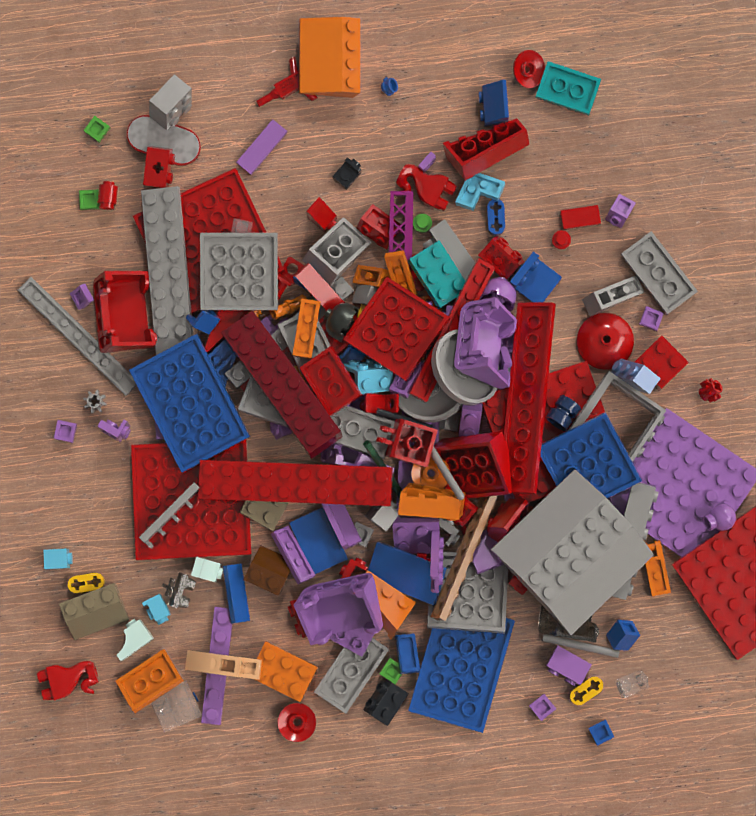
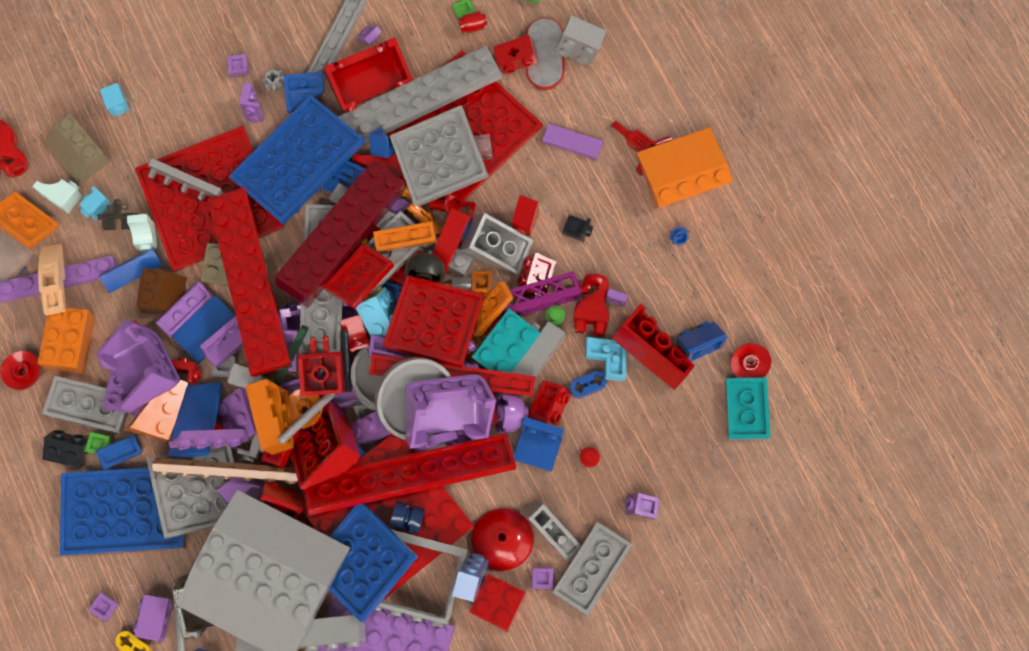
camera: 75 degrees right, 10 degrees down
(85, 578) = (105, 132): yellow beam -> none
(116, 377) = (300, 87): none -> blue wing
(580, 217) = (620, 468): red tile -> none

